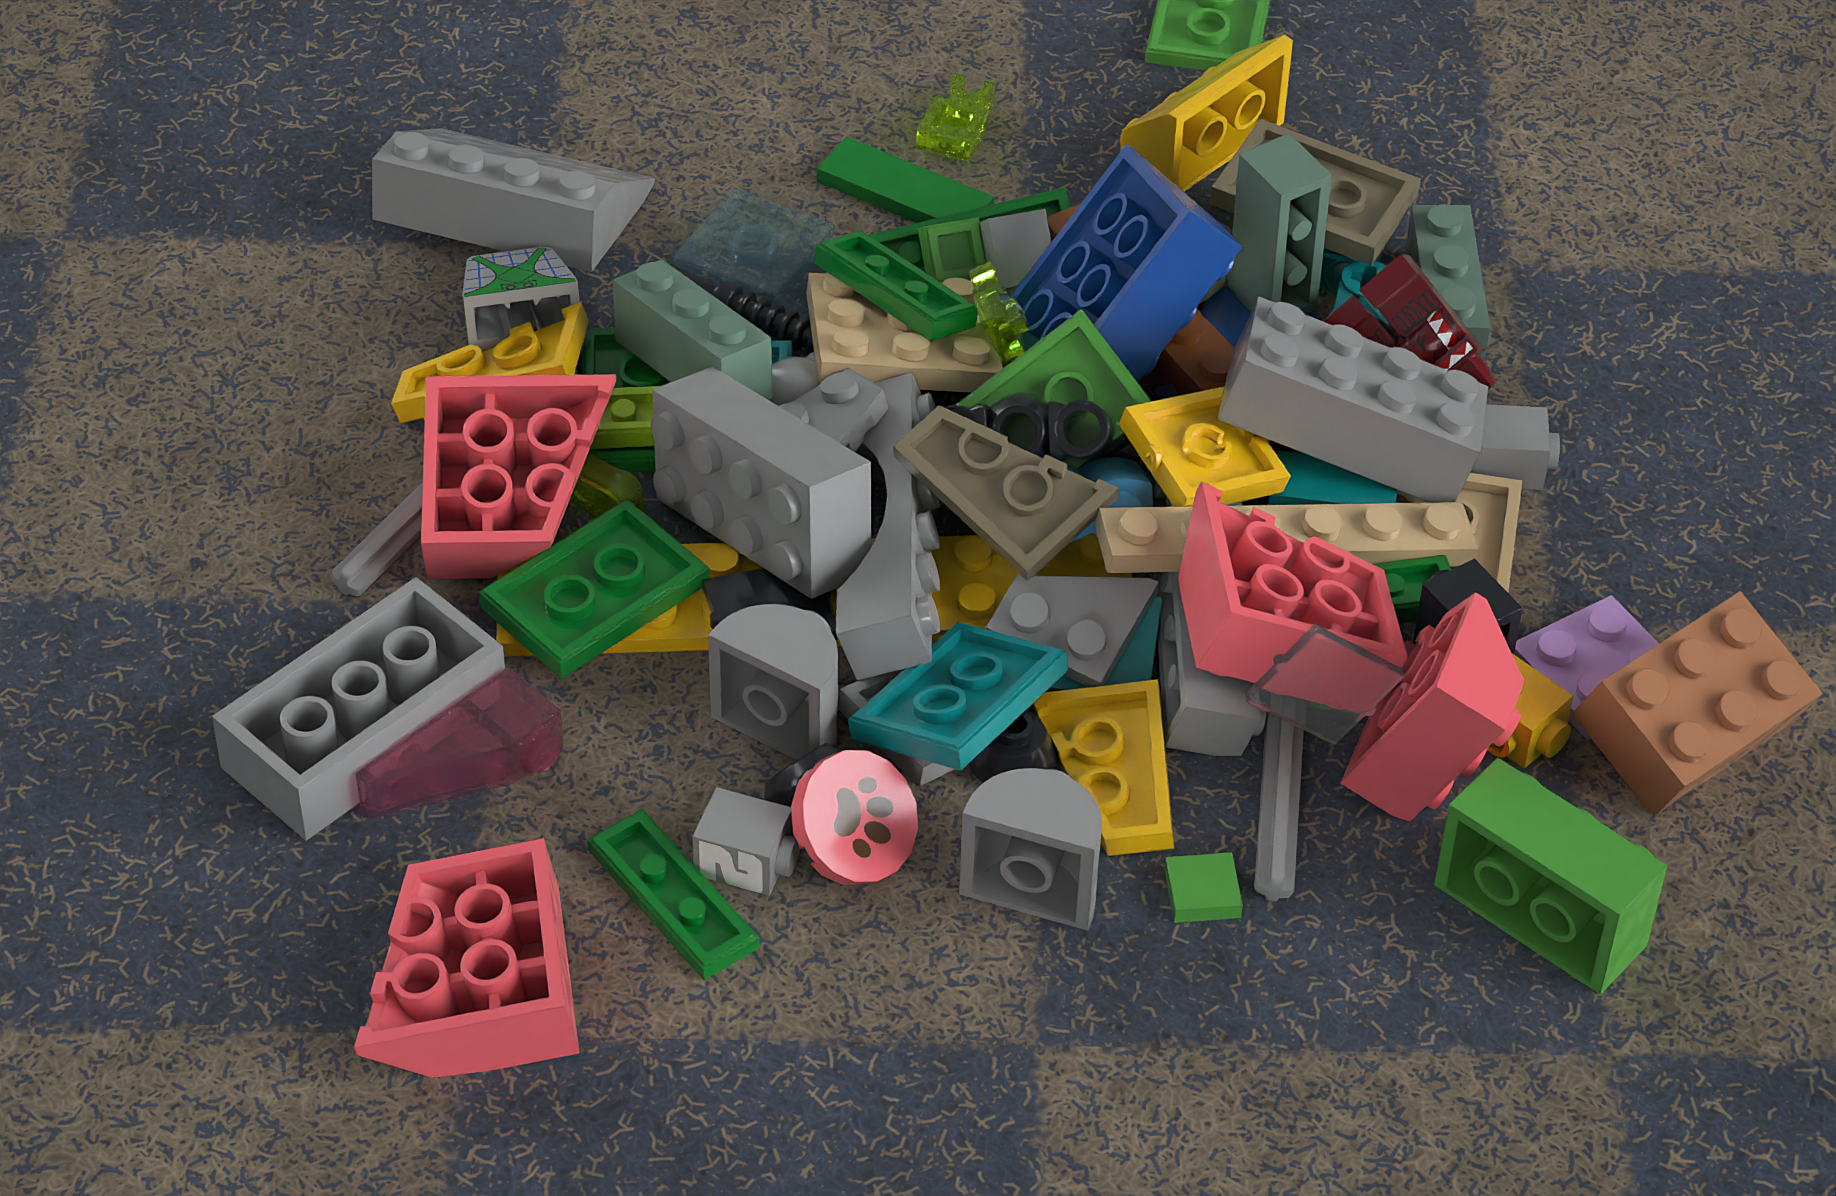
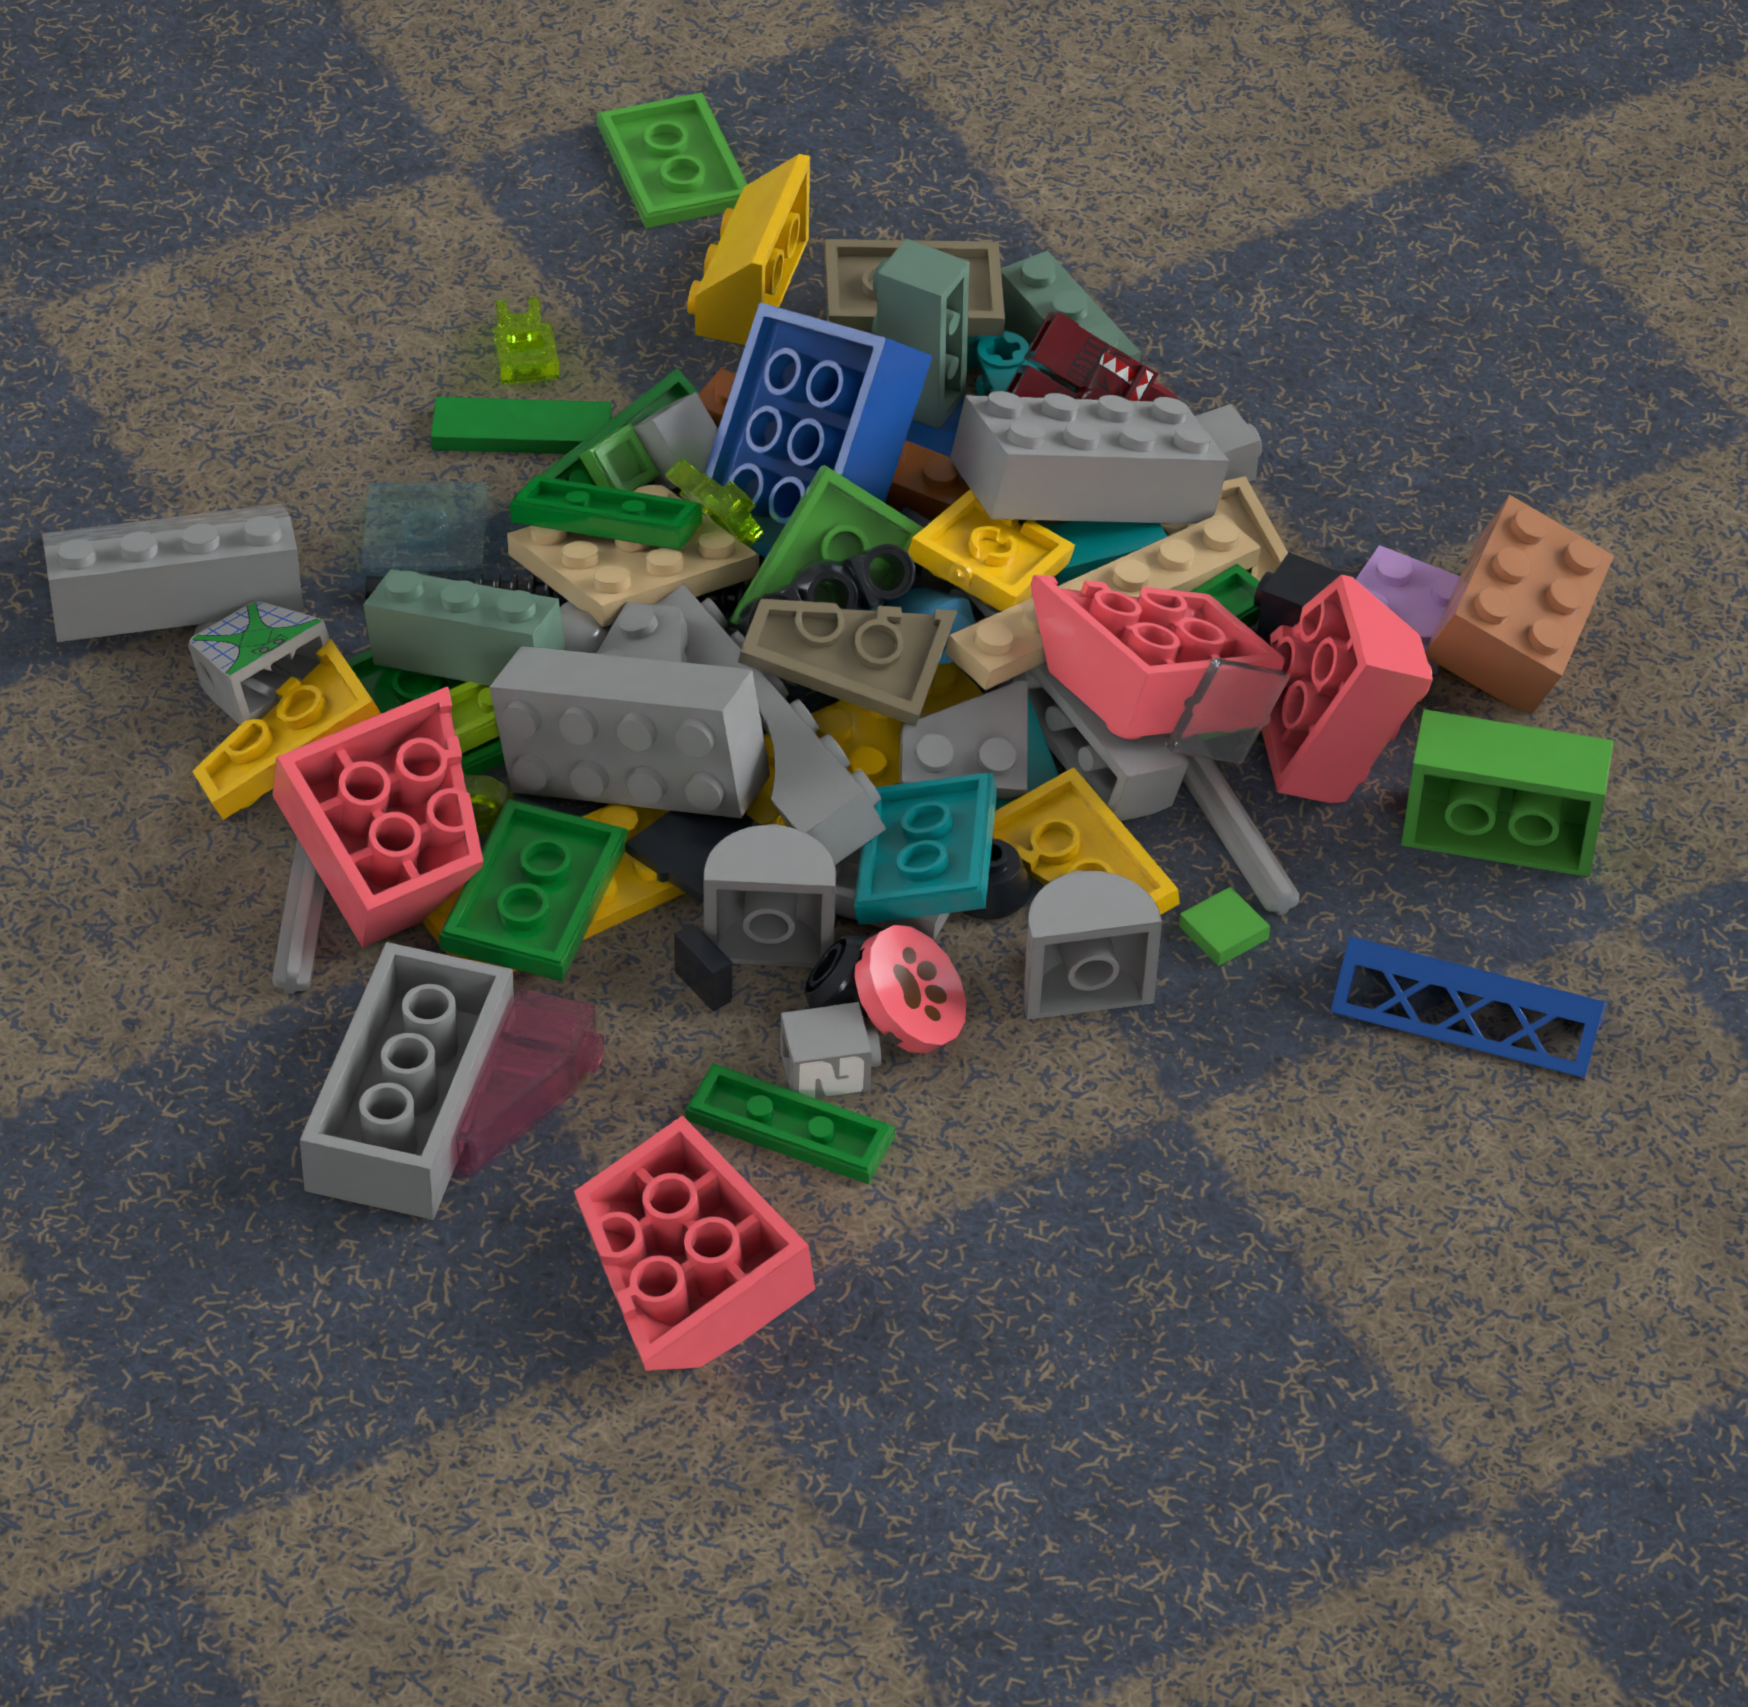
camera: 30 degrees left, 0 degrees up
(694, 719) = (703, 967): none -> black tile
(1397, 1042) = (1475, 982): none -> blue fence

